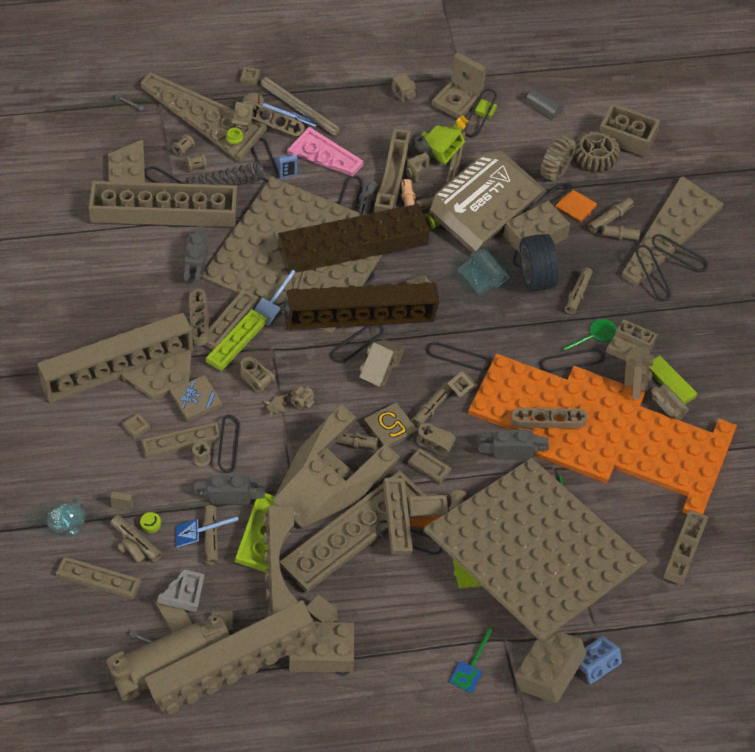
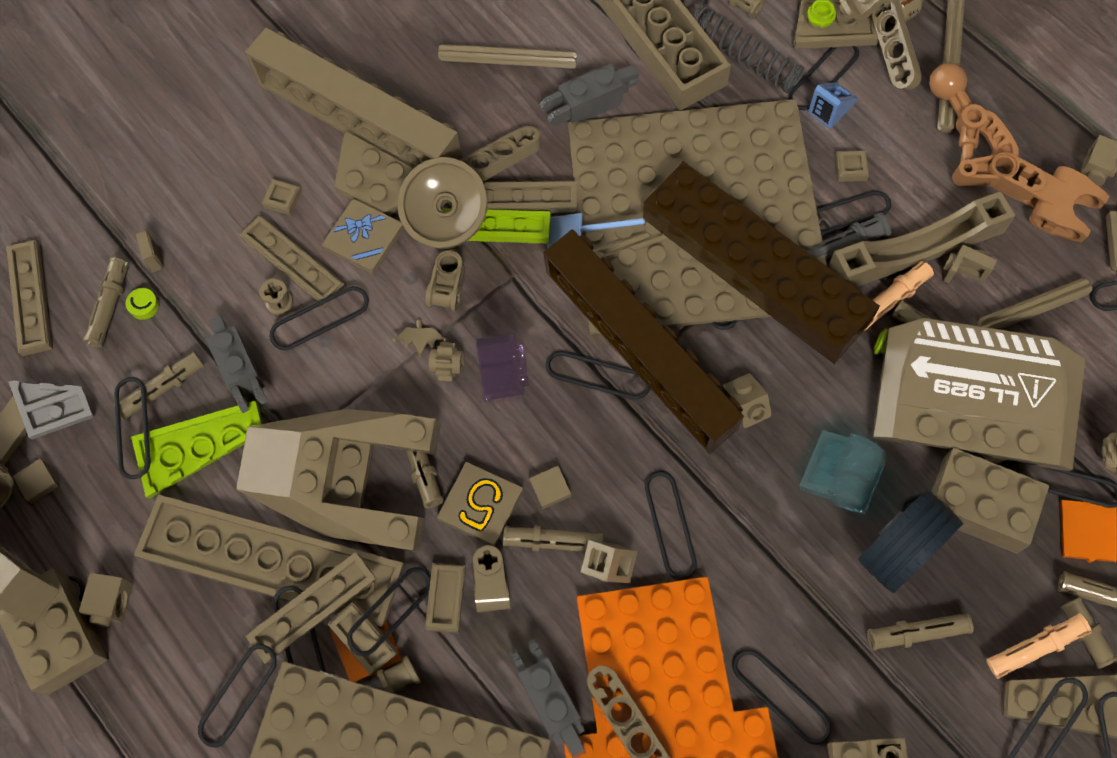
camera: 65 degrees right, 15 degrees up
(67, 518) = (82, 209): clear light blue cylinder -> none
(133, 548) = (86, 301): dark tan arm -> none
(135, 280) = (507, 56): none -> dark tan axle
(188, 532) = (148, 357): piece -> none
(219, 333) = (426, 193): none -> dark tan dish
(228, 561) = (145, 428): none -> black piece
(279, 527) = (90, 539): dark tan arch -> none
(294, 115) = (924, 65): light blue piece -> none
(324, 152) = (892, 132): bright pink wing -> none
(326, 178) = (851, 166): none -> dark tan tile
(336, 366) = (501, 368): none -> clear purple wedge
(380, 123) = (1047, 194): none -> medium nougat piece
(380, 361) = (572, 424): dark tan brick -> none
(403, 392) = (550, 487): none -> dark tan tile
(411, 578) = (226, 686): none -> black piece
(418, 489) = (398, 622): none -> black piece
(442, 141) = (1037, 268): lime torso -> none
(601, 330) = (872, 711): green piece -> none
(615, 251) = (1049, 640): none -> light nougat pin

